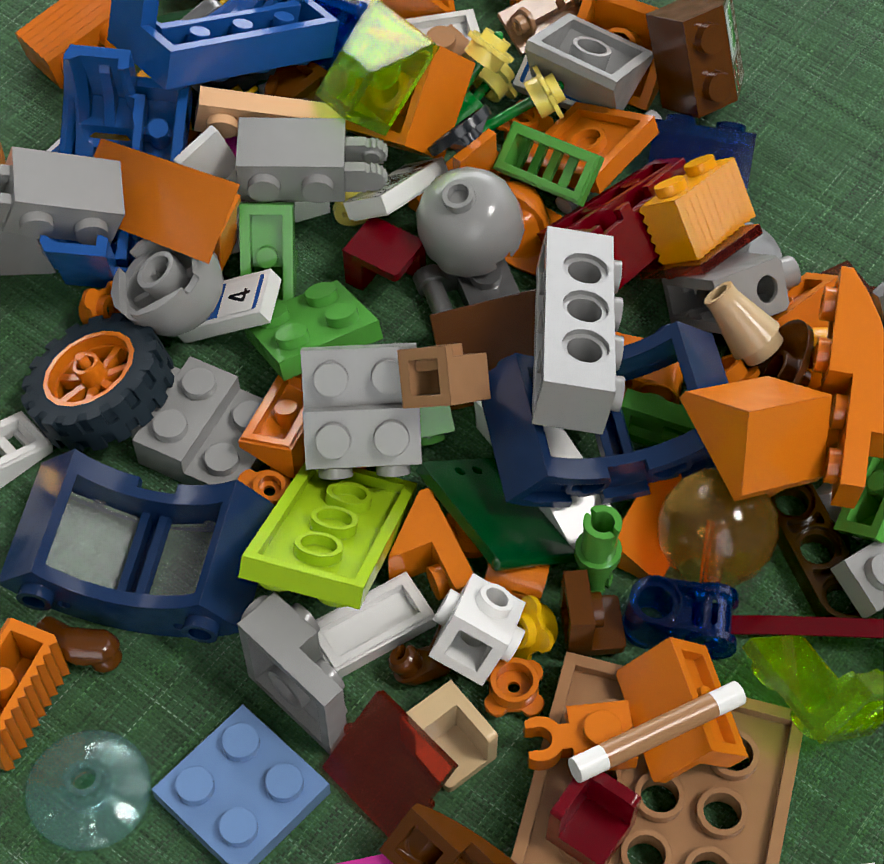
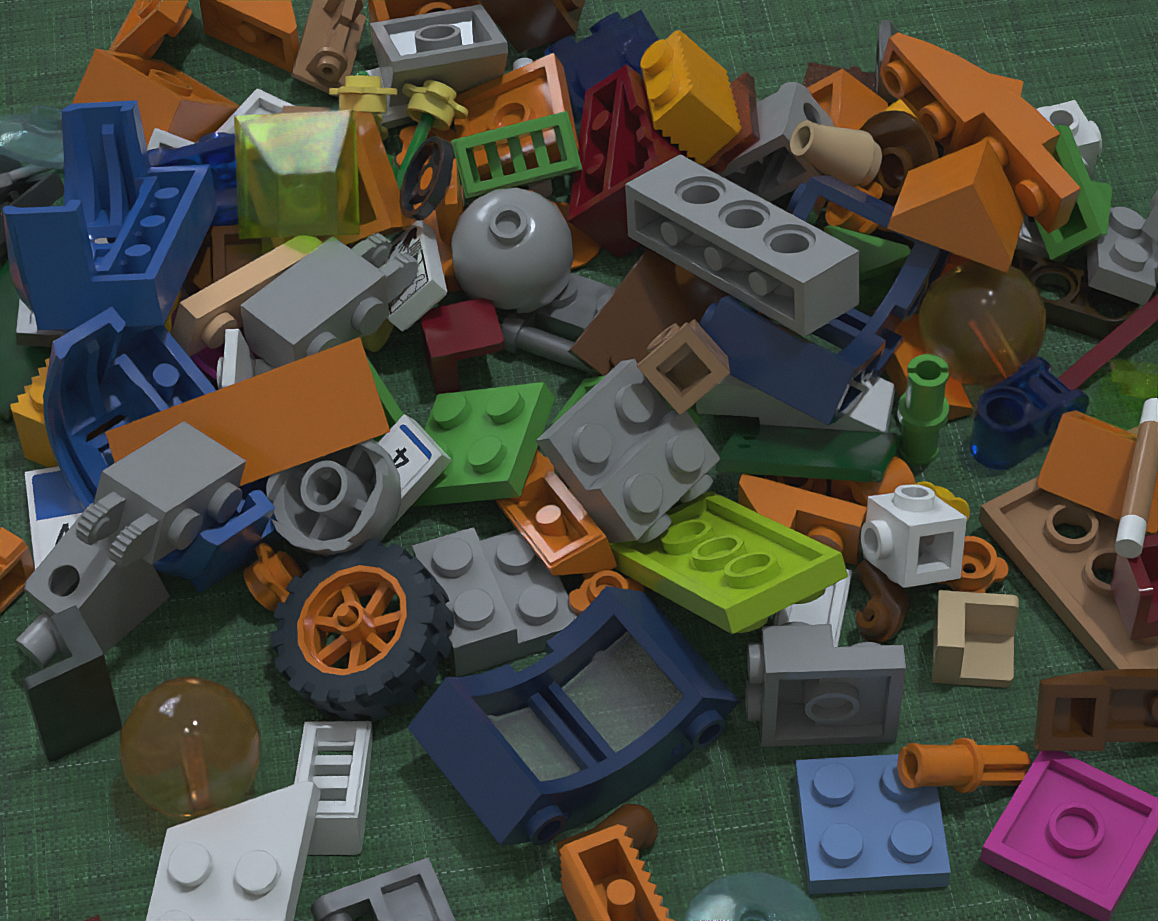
camera: 45 degrees left, 5 degrees down
(327, 811) = (962, 765): none -> orange axle
(388, 763) = (964, 691): clear red piece -> none
(584, 728) = (1073, 542): orange plate -> none
(589, 620) = (964, 467): reddish brown bracket -> none

